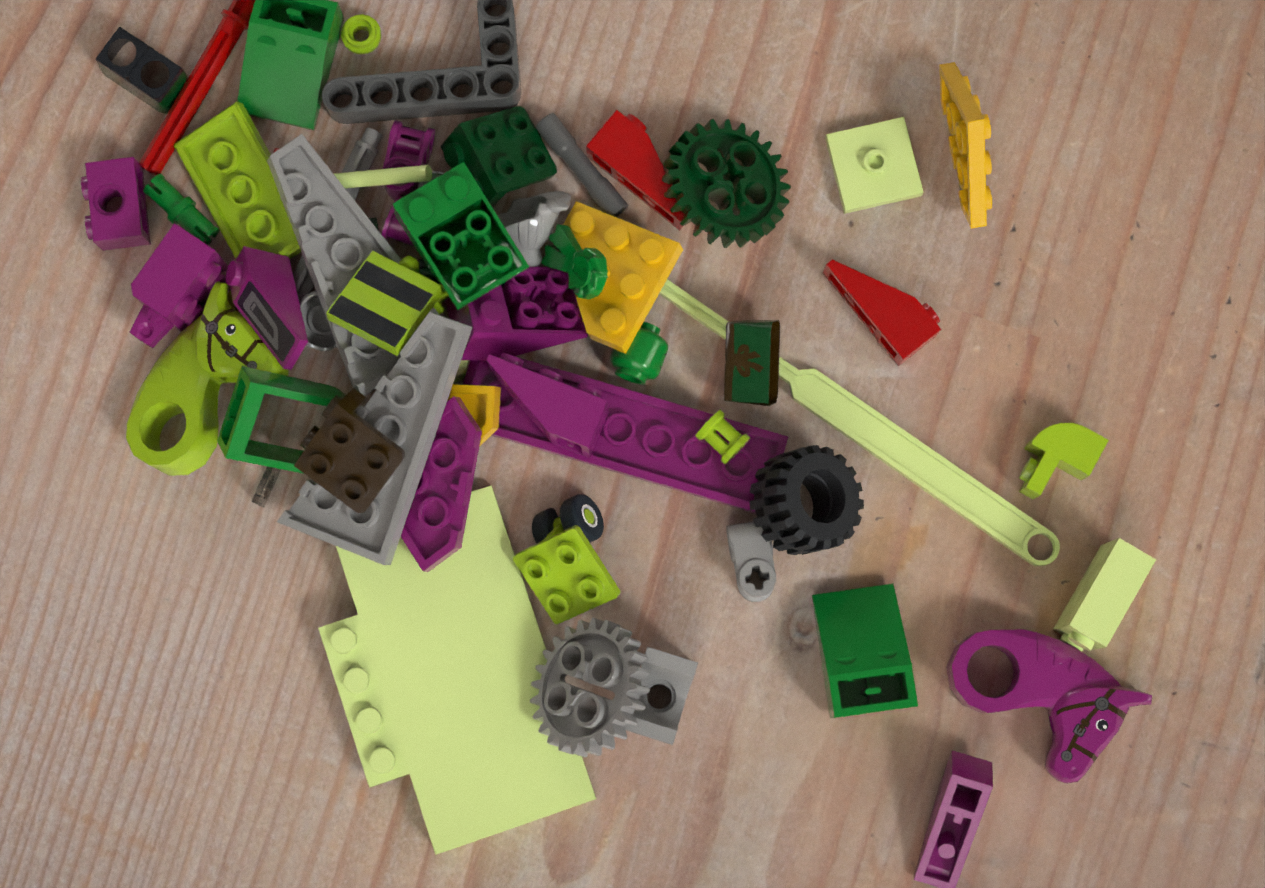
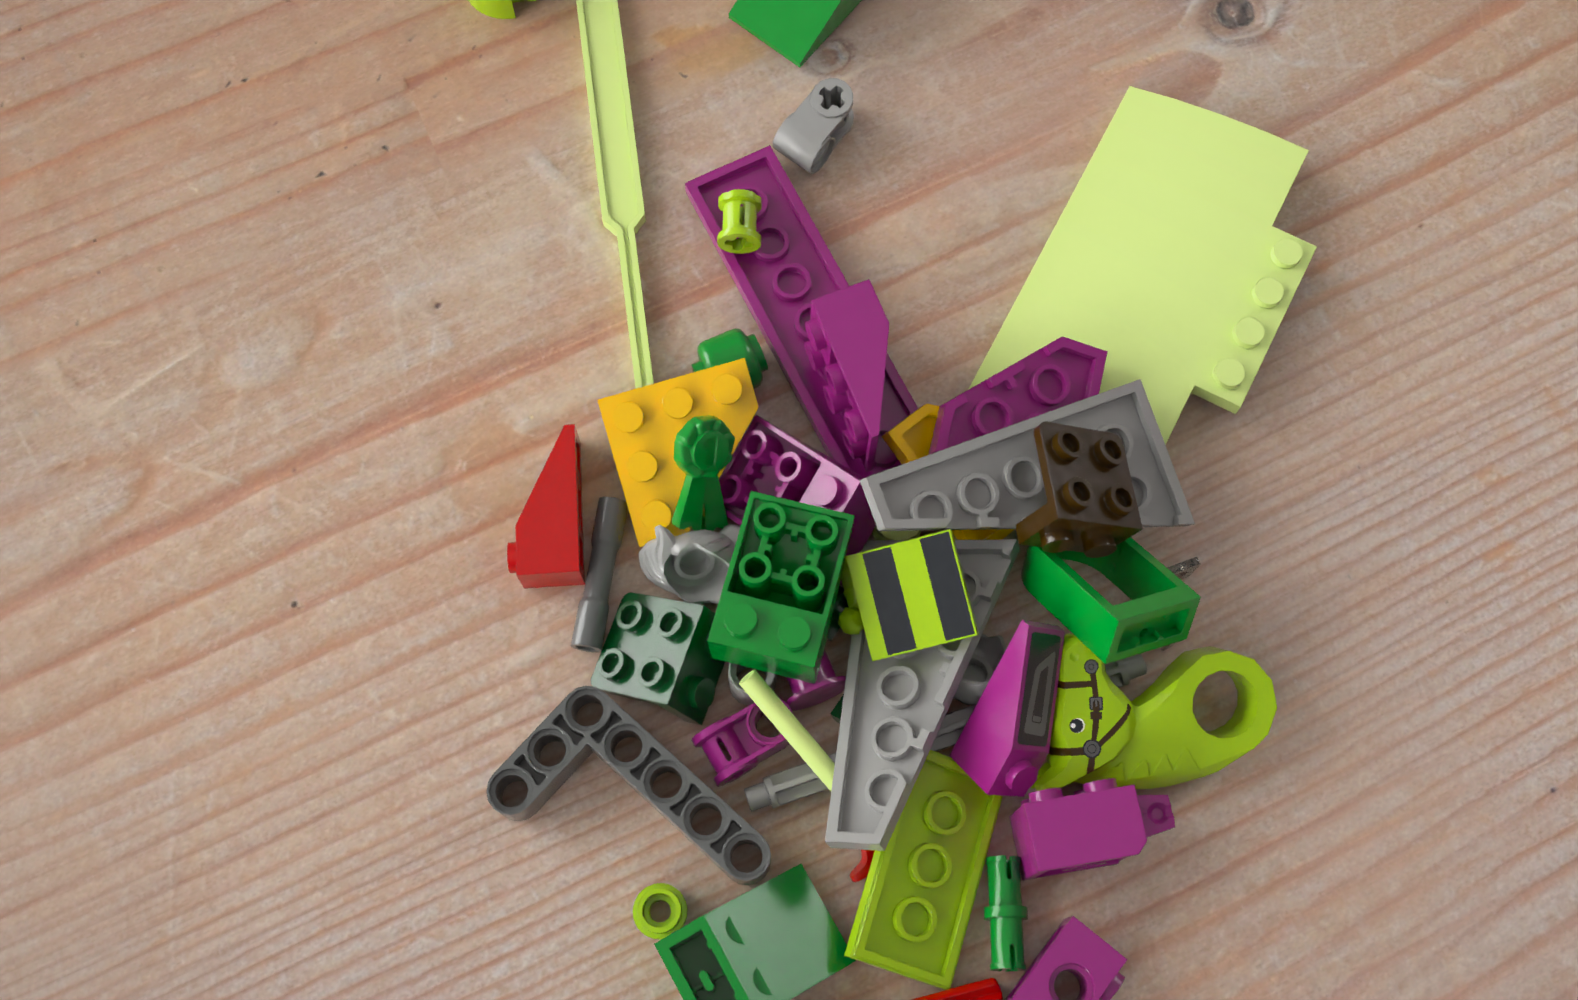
camera: 135 degrees left, 10 degrees down
(563, 563) = (983, 254): lime plate -> none
(580, 719) = (1059, 133): light grey gear -> none
(676, 675) = (1027, 80): light grey piece -> none
(726, 183) = (499, 422): dark green gear -> none
(752, 362) = (647, 258): piece -> none
(832, 493) = (729, 111): black tyre -> none
(874, 165) = (363, 326): yellowish green plate -> none
(888, 313) = (497, 184): red slope -> none
(968, 143) = (267, 250): yellow plate -> none

